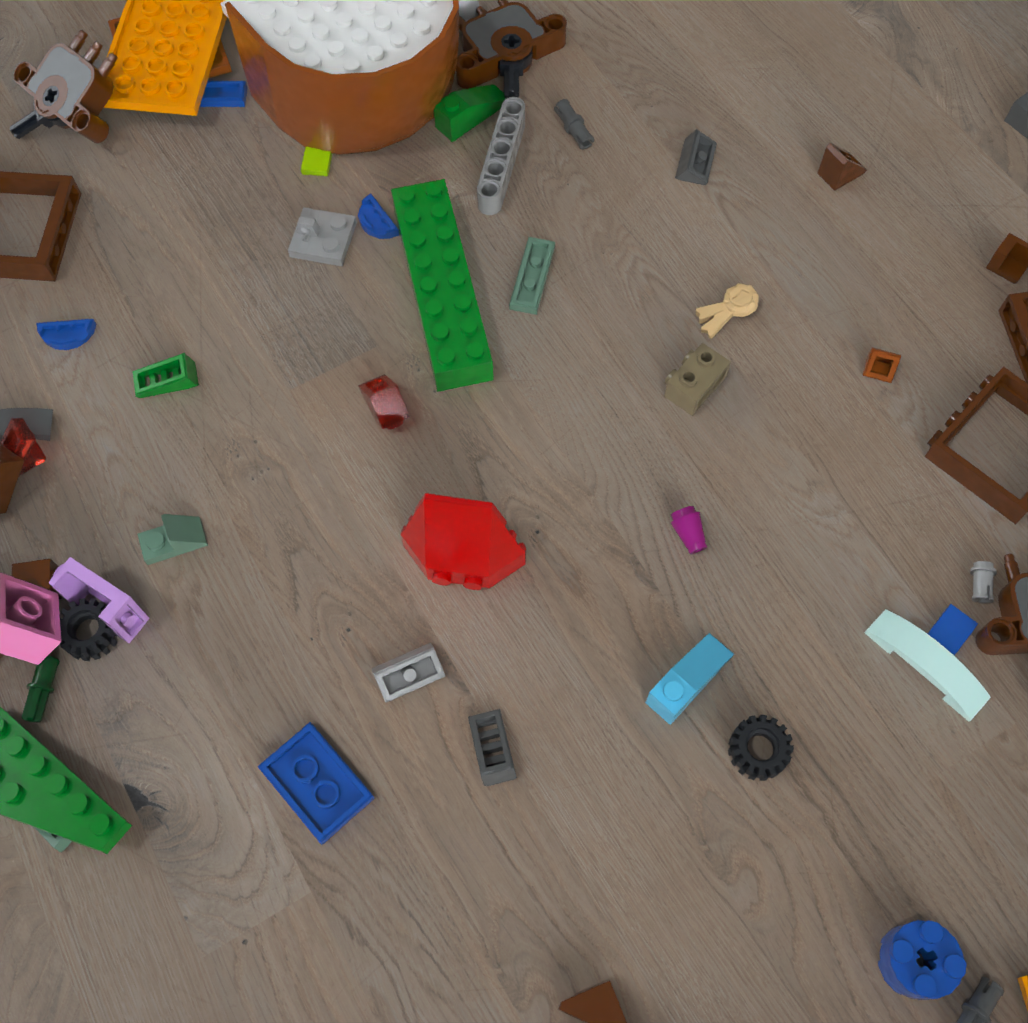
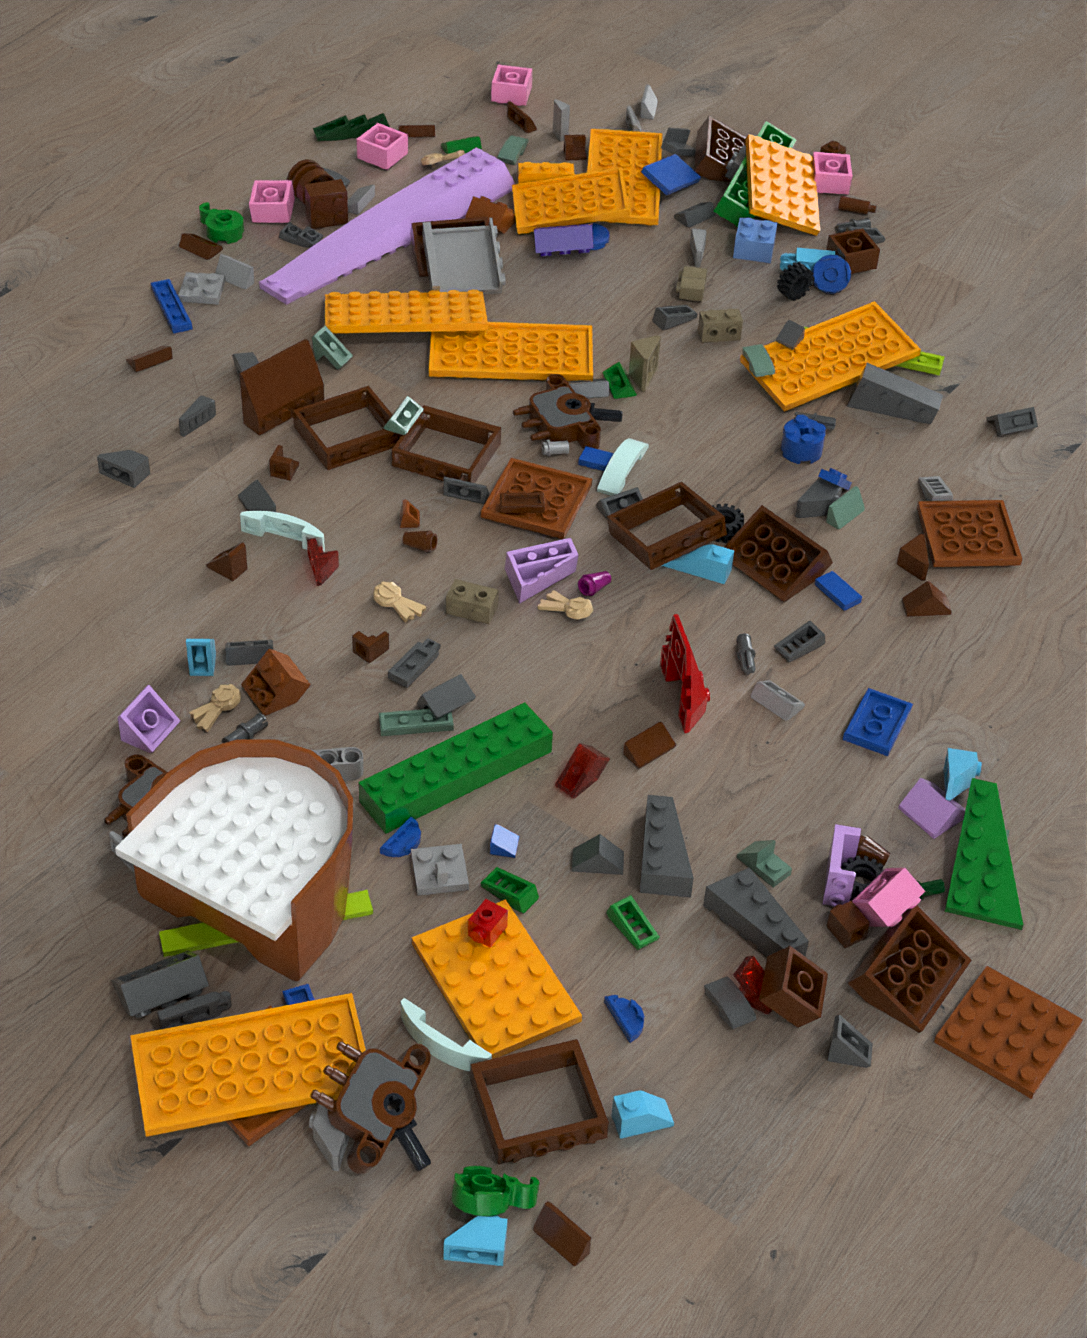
camera: 115 degrees left, 20 degrees down
(94, 490) = (754, 913): none -> dark grey wedge
(120, 169) = (438, 1044): none -> light aqua slope
(121, 659) = (872, 850): none -> reddish brown cone
(145, 779) = (930, 810): none -> lavender slope
(166, 830) = (959, 770): none -> medium azure slope
(168, 242) = (500, 992): none -> light orange plate
(213, 233) = (487, 923): none -> red brick
(229, 432) = (664, 855): none -> dark grey wedge
(252, 296) = (521, 900): none -> green slope
(259, 377) = (598, 856): none -> dark grey slope
(326, 298) = (503, 842): none -> slope
(393, 488) = (648, 745): none -> reddish brown slope
(495, 663) = (746, 653): none -> dark grey axle
(500, 978) = (926, 601): none -> reddish brown slope
(547, 304) = (447, 697): none -> dark grey panel
(574, 853) = (838, 590): none -> blue tile
(618, 49) = (146, 721): none -> lavender slope
(618, 295) = (414, 662): none -> dark grey hinge
(625, 117) = (222, 699): none -> tan piece
(633, 162) = (275, 682): none -> dark orange slope
(651, 492) = (574, 608): none -> tan piece
(659, 260) = (370, 647): none -> reddish brown panel
(667, 790) = (777, 555): none -> reddish brown slope
(694, 104) = (201, 656): none -> medium azure slope
(712, 660) = (707, 530): none -> reddish brown window
(727, 463) = (540, 566): none -> lavender wedge
(742, 955) = (845, 508): none -> sand green slope
(772, 918) = (817, 499): none -> dark grey slope
(804, 960) = (835, 477): none -> blue plate
(810, 246) = (322, 563): none -> clear red slope
(825, 363) = (421, 540): none -> reddish brown cone
(843, 628) = (618, 501): none -> dark grey slope
(862, 489) = (522, 502): none -> reddish brown tile
(866, 247) = (281, 524): none -> light aqua slope
(878, 521) = (562, 497): none -> dark orange plate
(915, 443) = (465, 490): none -> dark grey slope
(944, 221) = (256, 498): none -> dark grey slope

